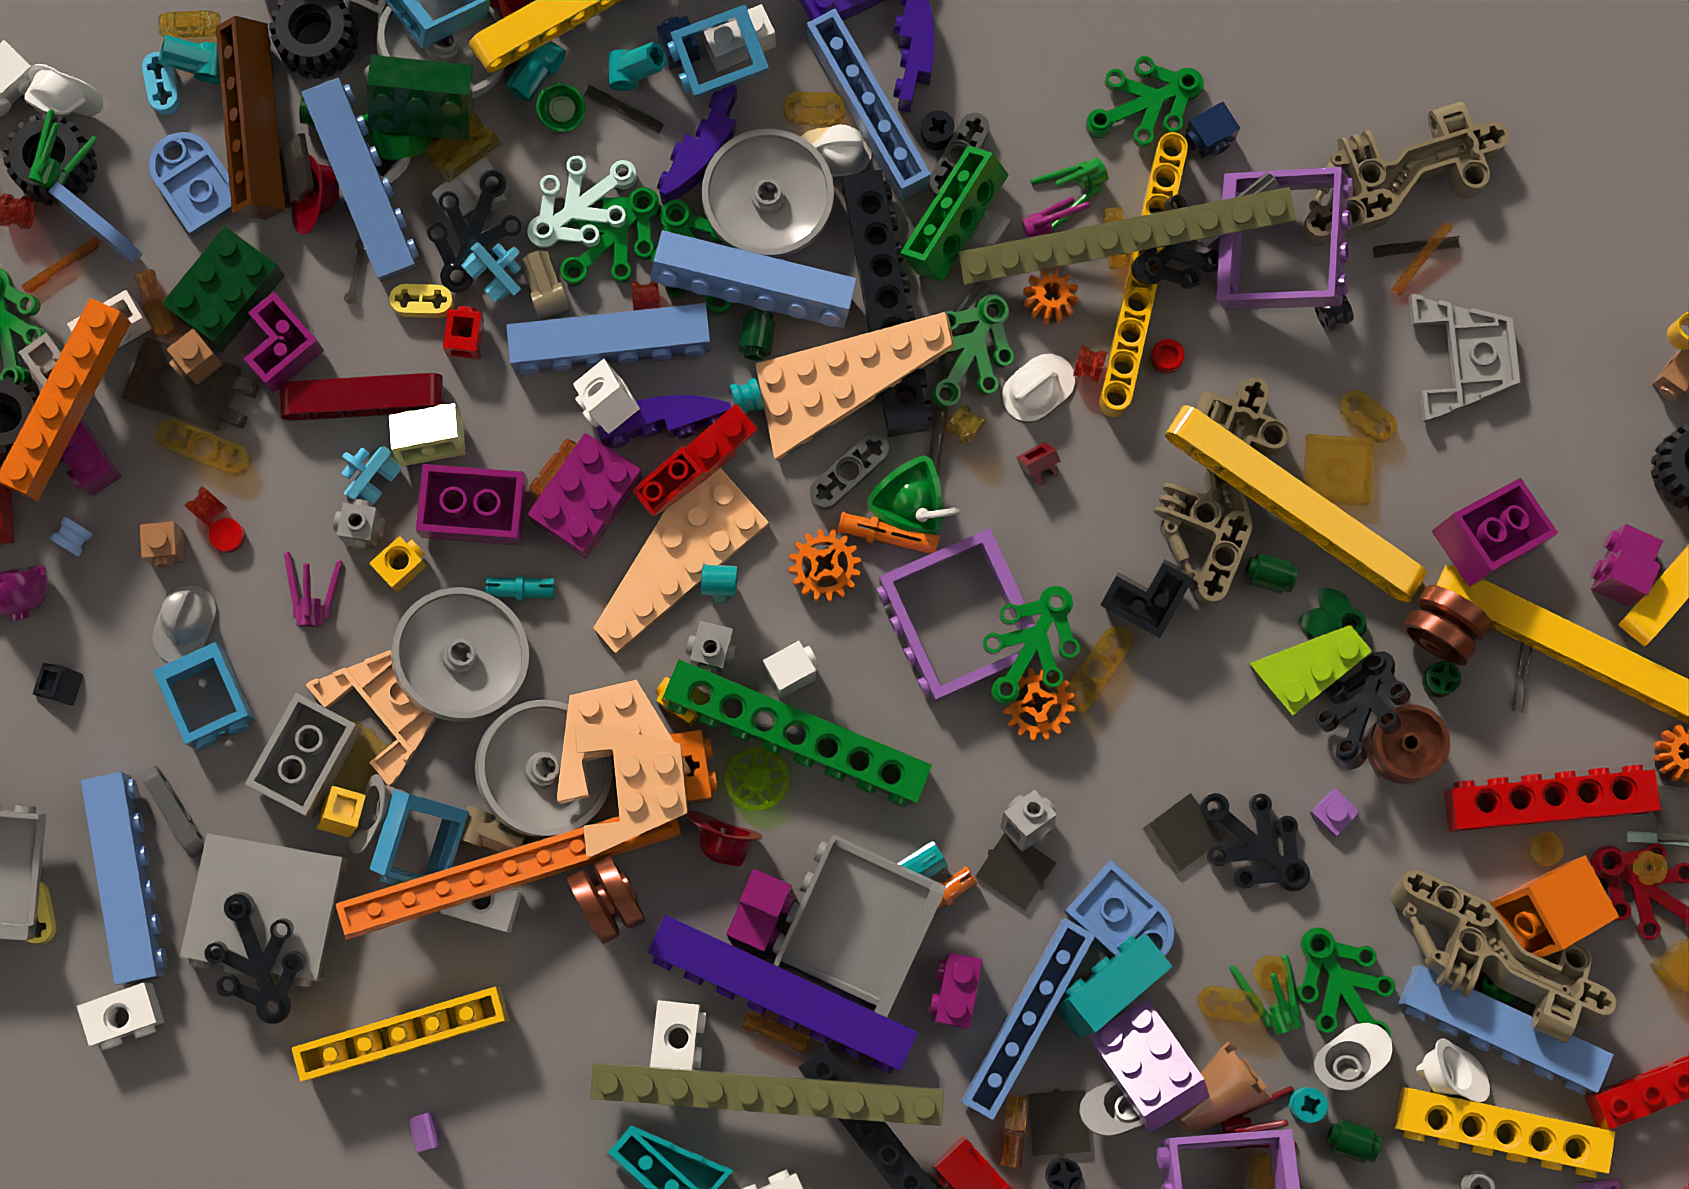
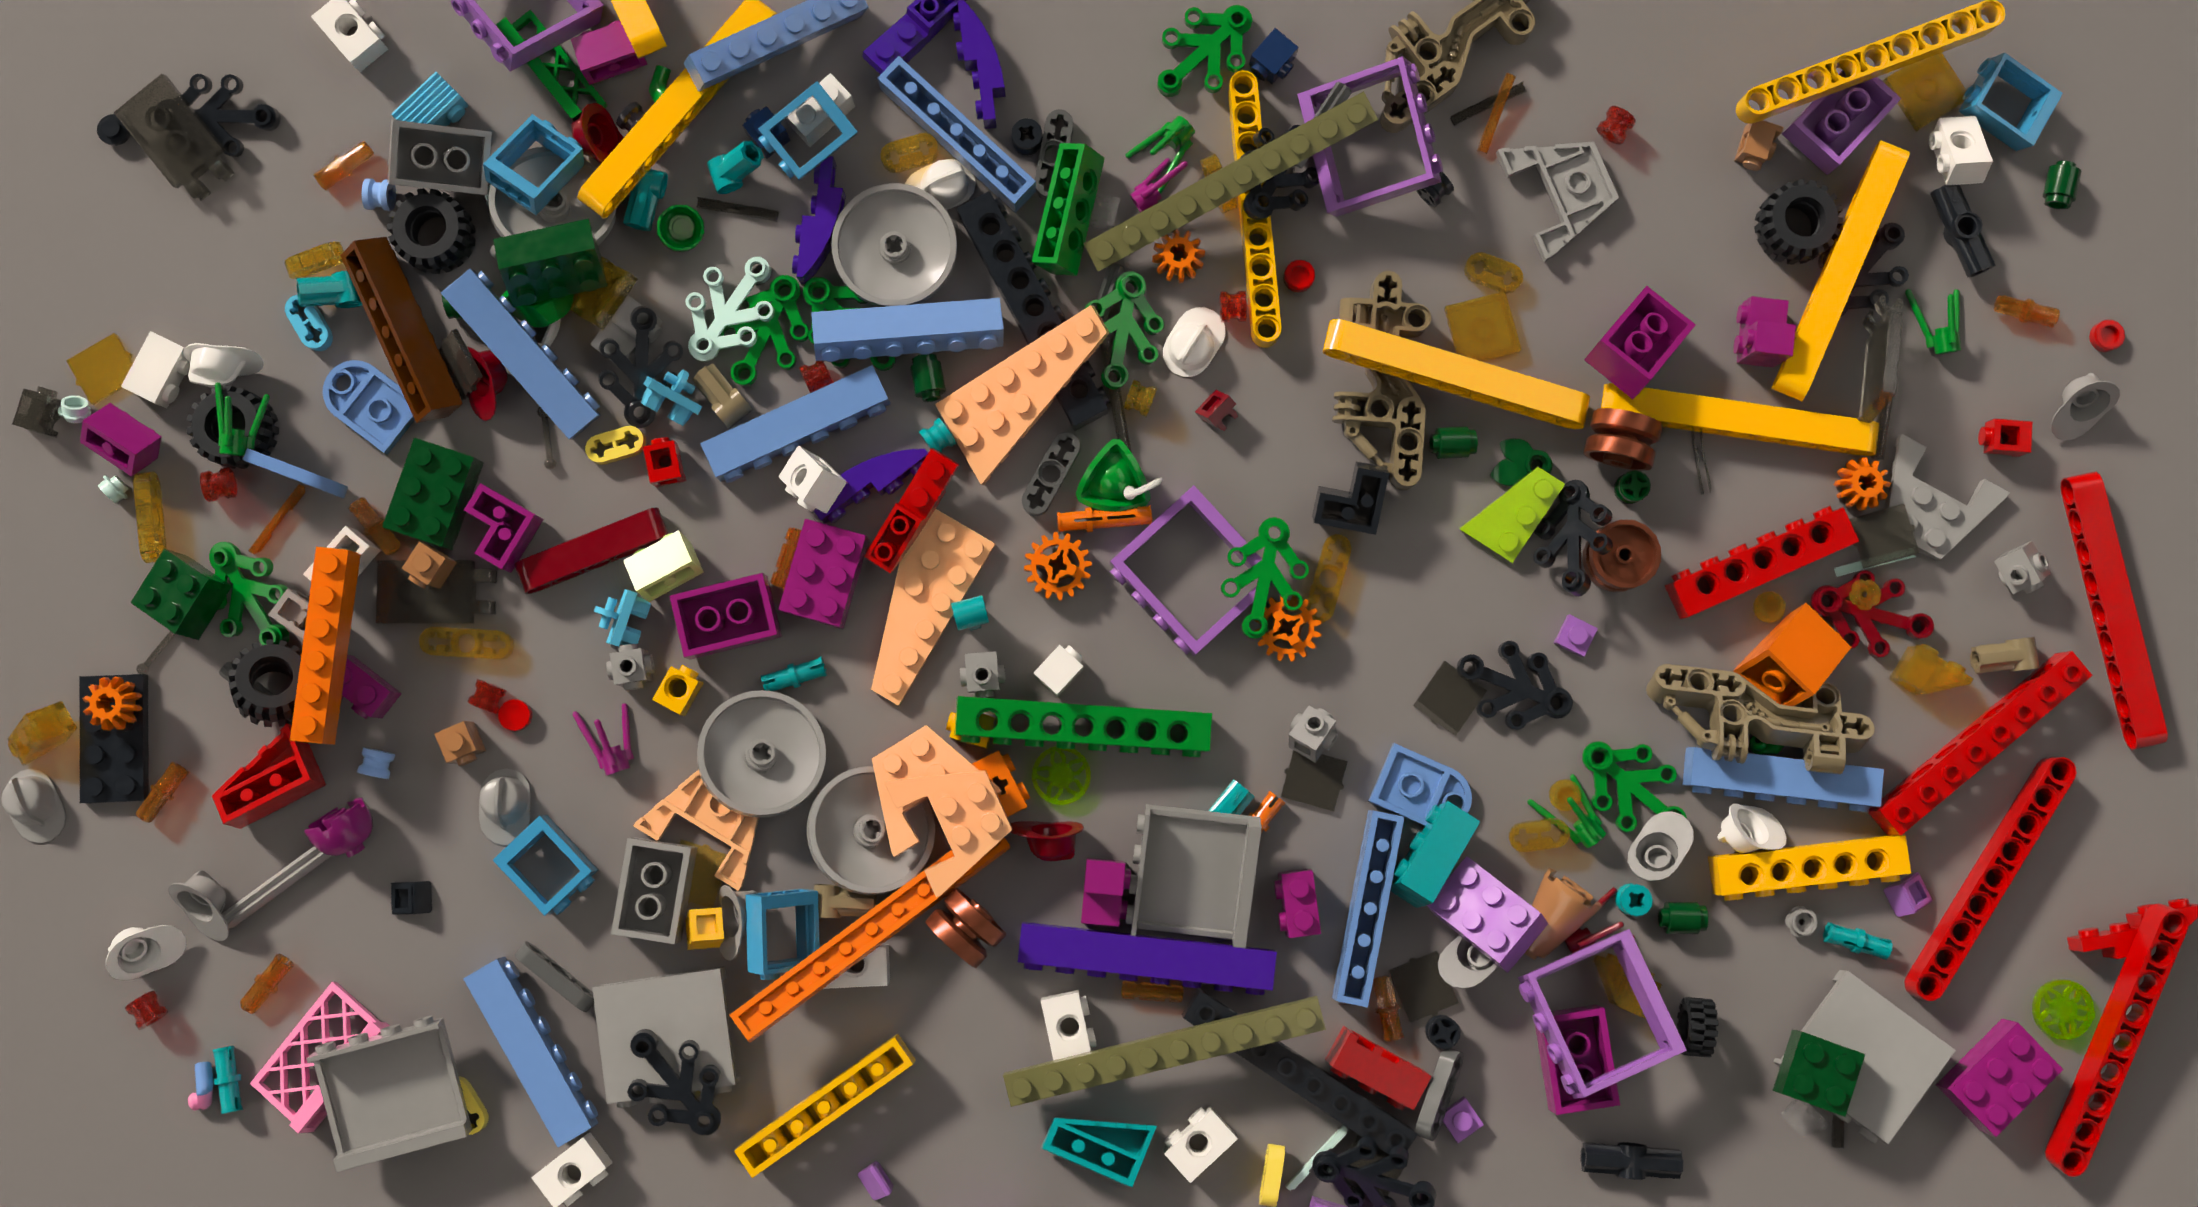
camera: 20 degrees left, 5 degrees up
(1540, 308) = (1616, 125): none -> clear red wheel

